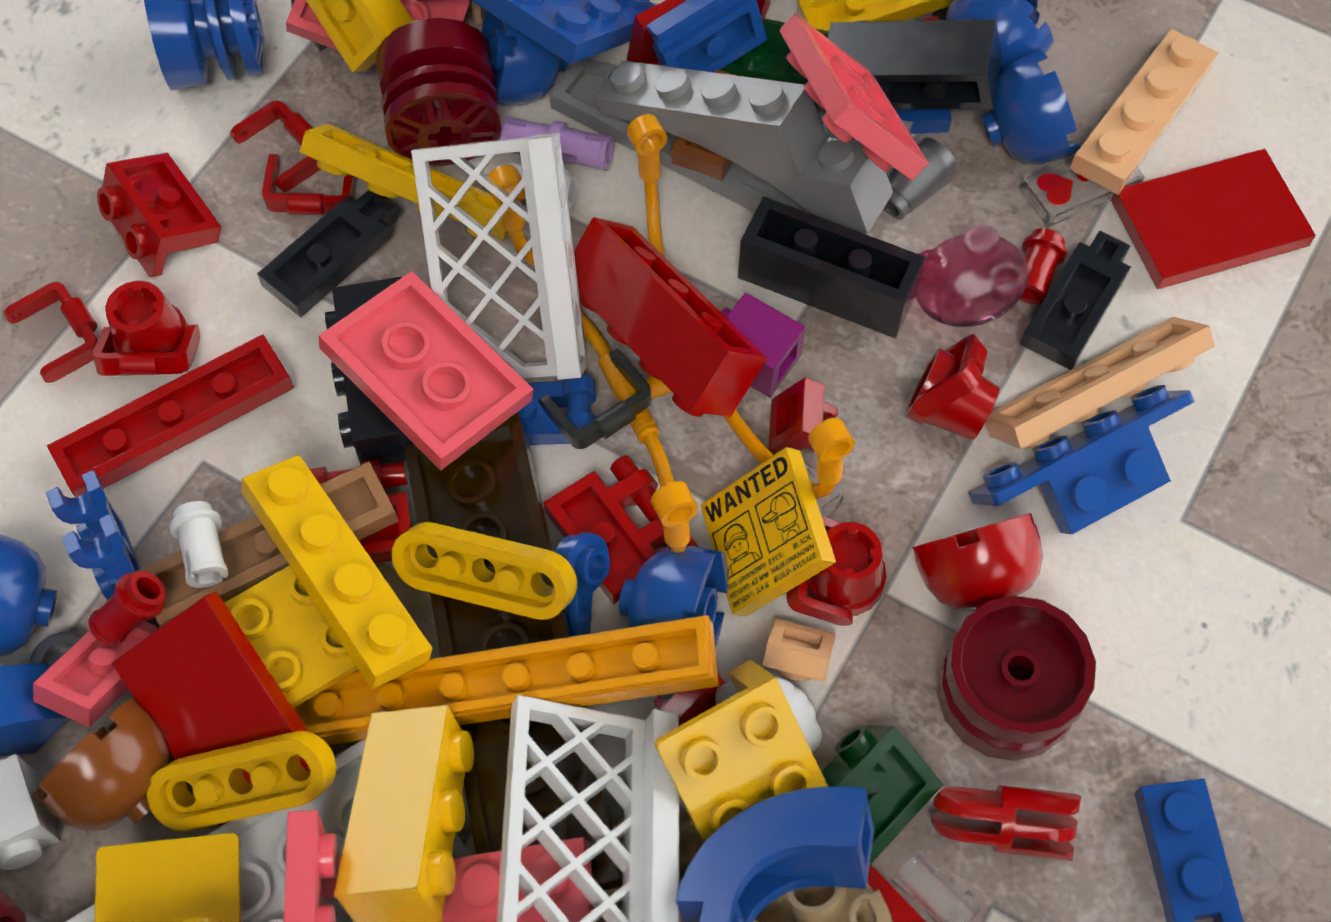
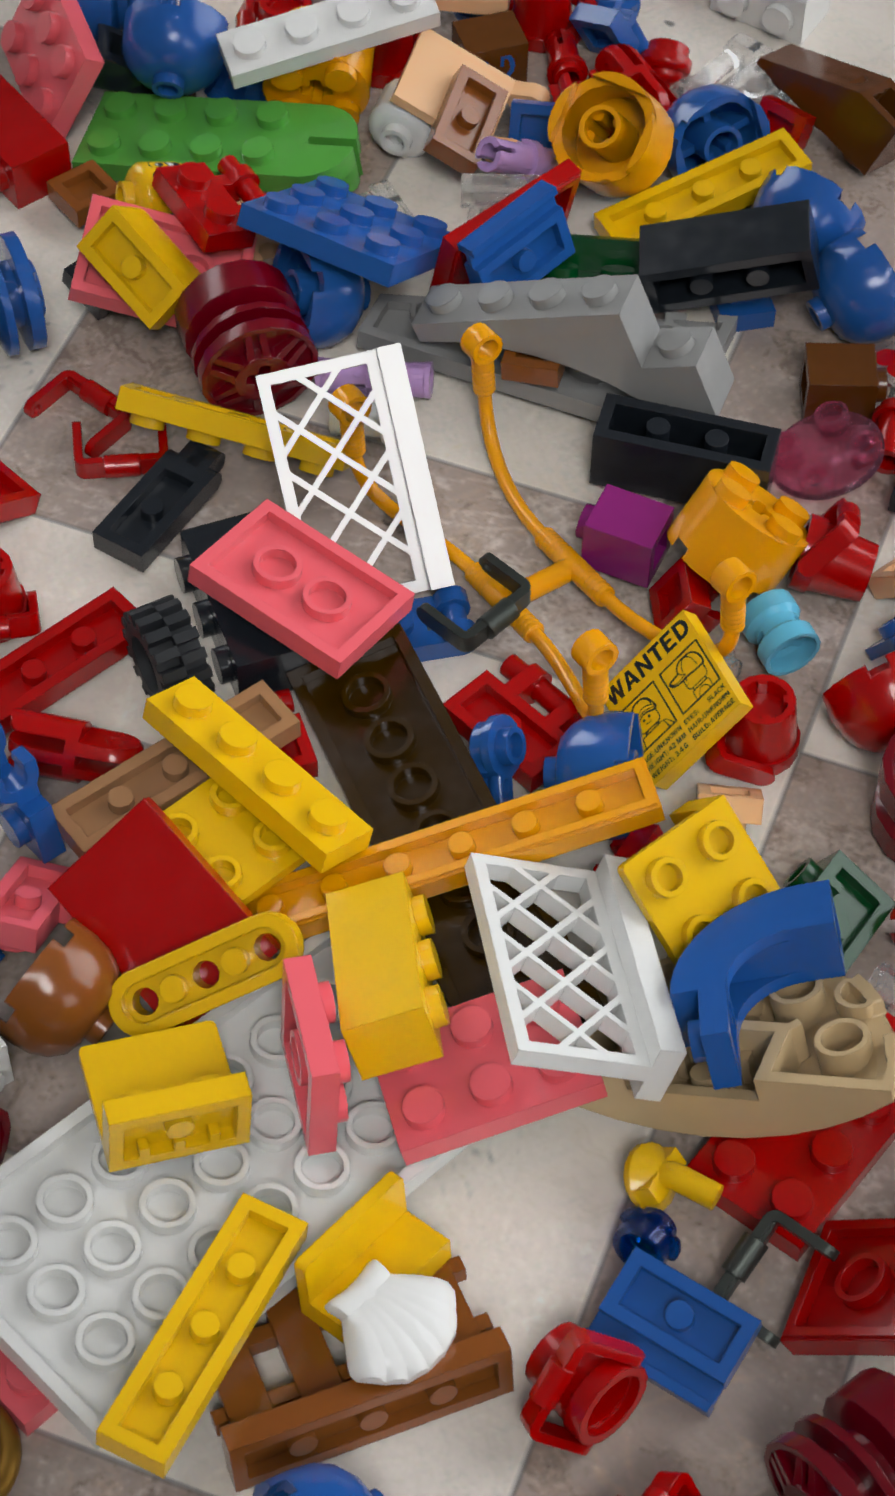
camera: 10 degrees left, 10 degrees down
(136, 599) = (59, 827): red pin -> none
(161, 487) = (68, 746): none -> red arm
(201, 551) = (106, 758): white pin -> none
(290, 415) = (165, 645): none -> black tyre
(463, 575) = (378, 765): yellow plate -> none
(664, 320) = (532, 519): red brick -> none
(851, 99) = (683, 283): coral plate -> none
(864, 361) = (741, 520): none -> light orange brick
(885, 464) = (781, 637): none -> medium azure wheel
(936, 175) = (756, 364): flat silver cone -> none
(1002, 200) = (841, 374): none -> reddish brown brick

